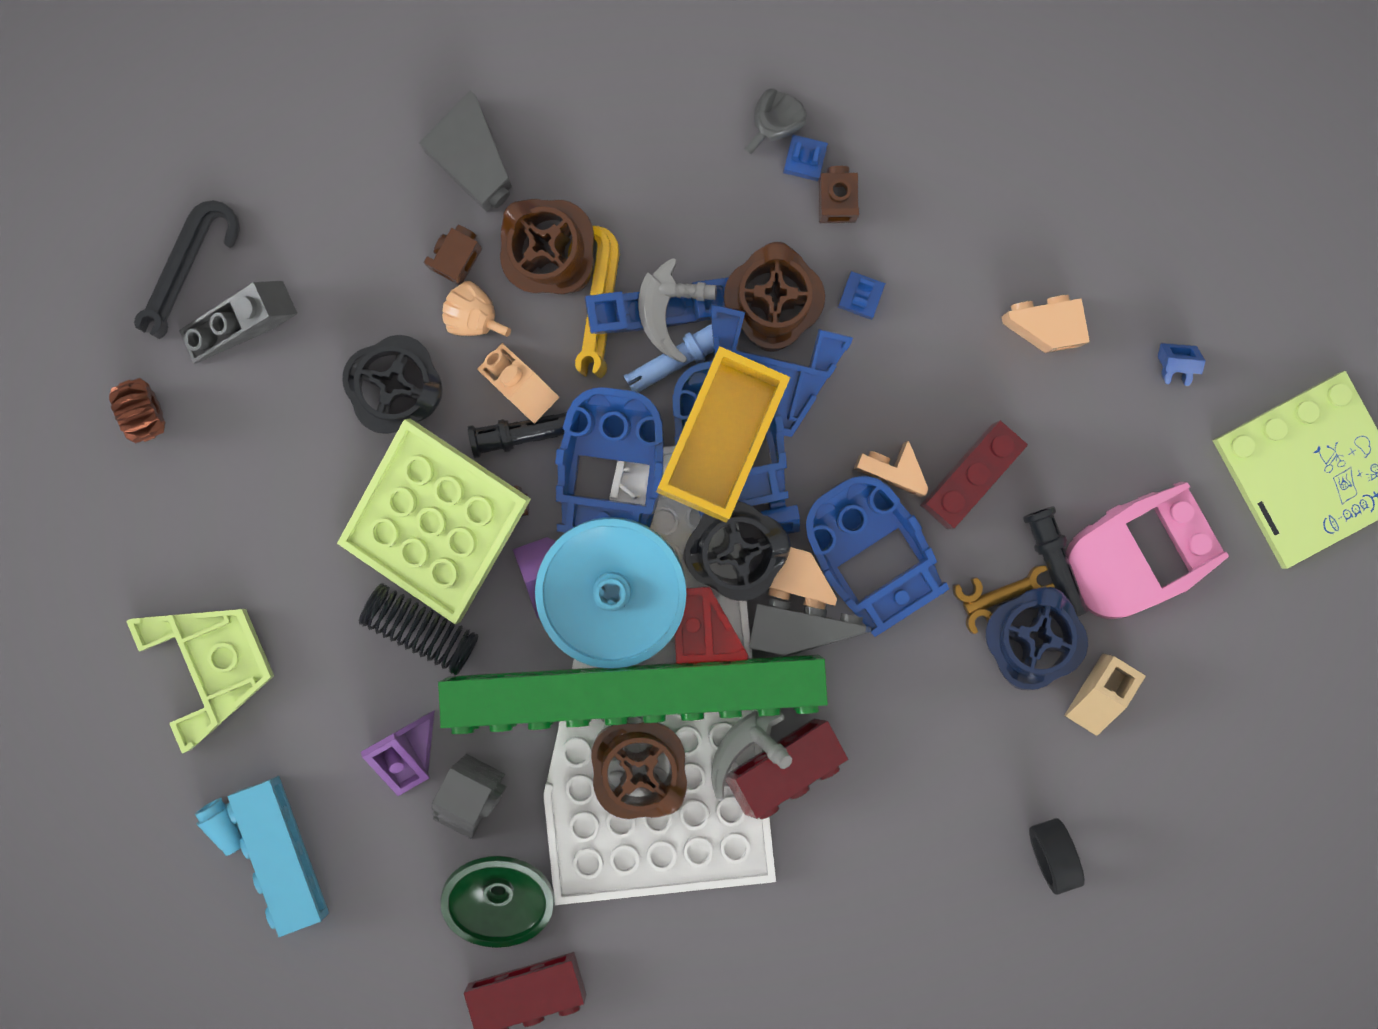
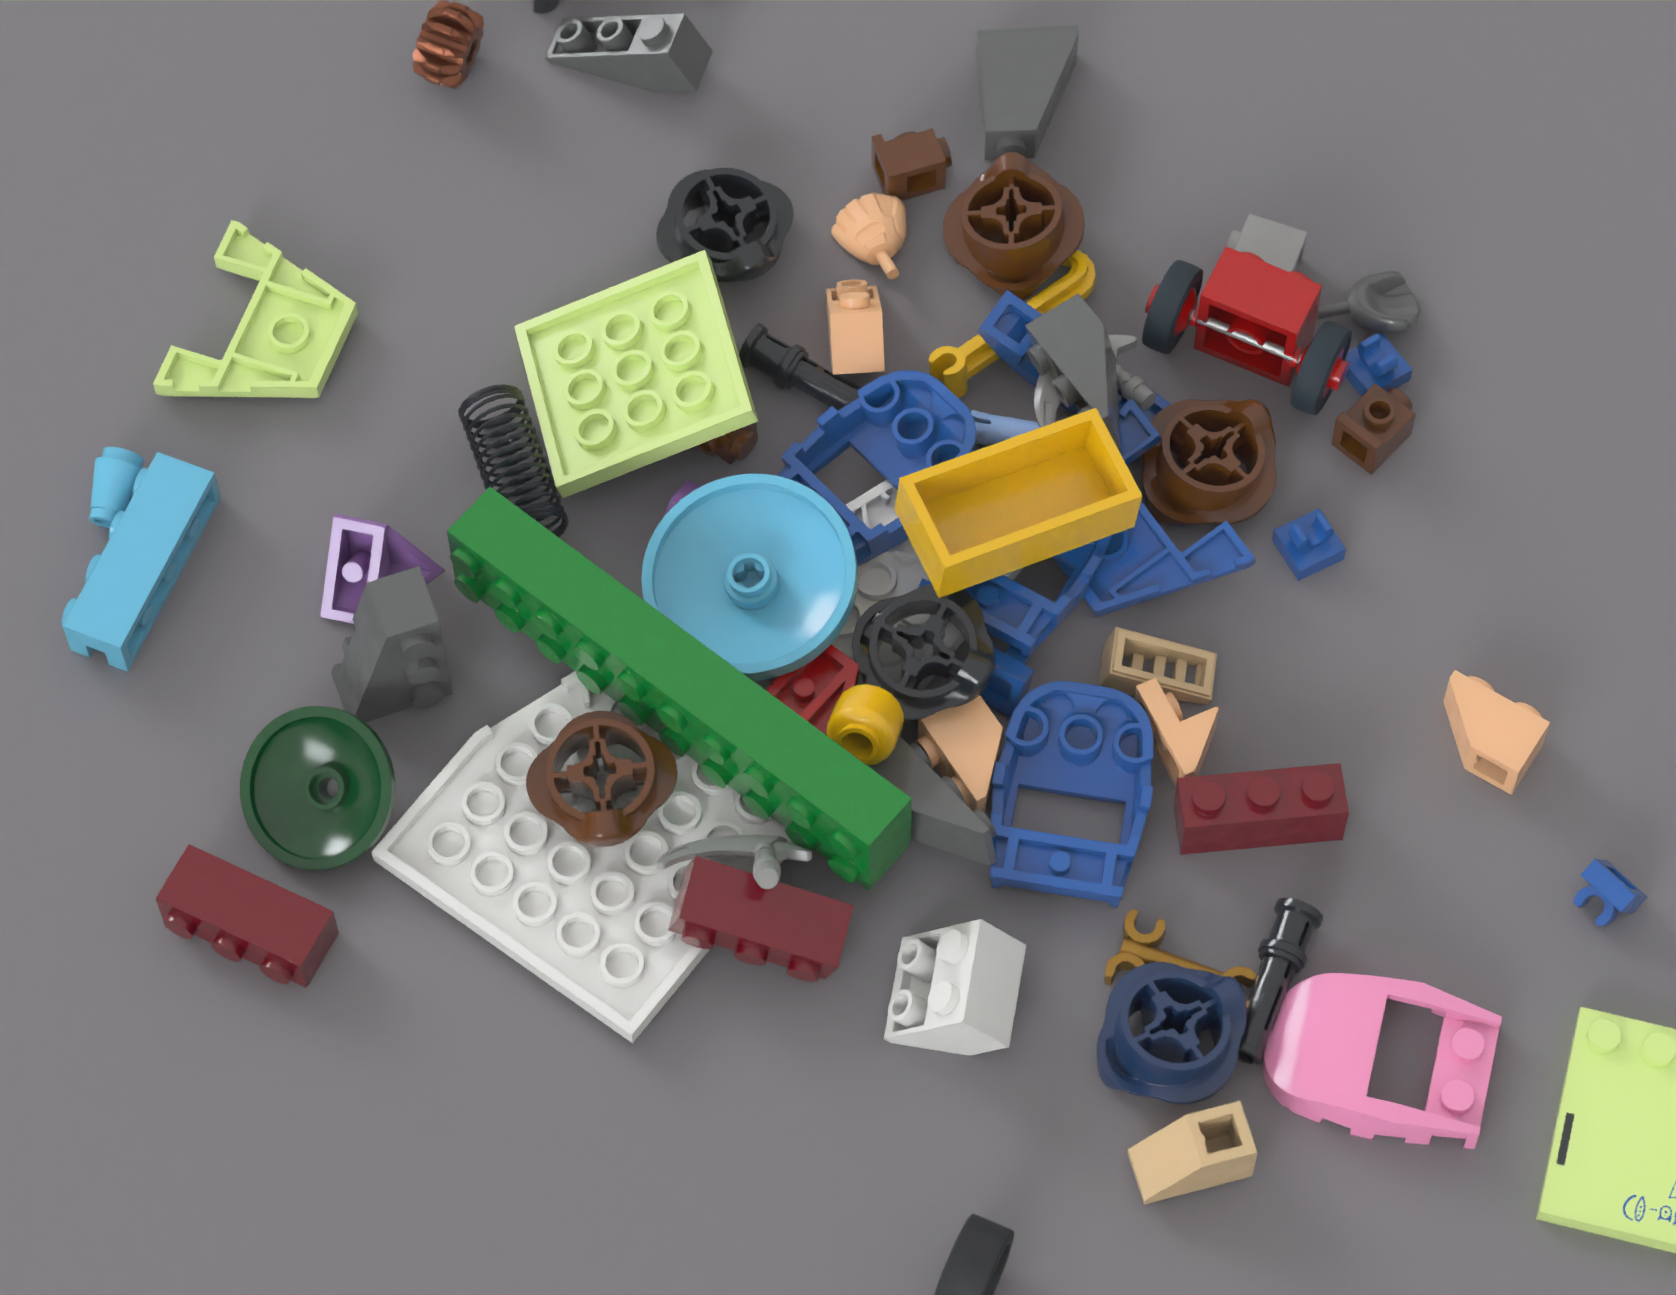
camera: 45 degrees right, 25 degrees down
(666, 304) = (1079, 356): none -> dark grey slope
(693, 142) = (1271, 241): none -> light grey brick
(729, 191) = (1254, 321): none -> brick
(748, 623) = (866, 723): none -> yellow head
(824, 456) = (1160, 651): none -> tan slope
(910, 711) = (956, 989): none -> white slope

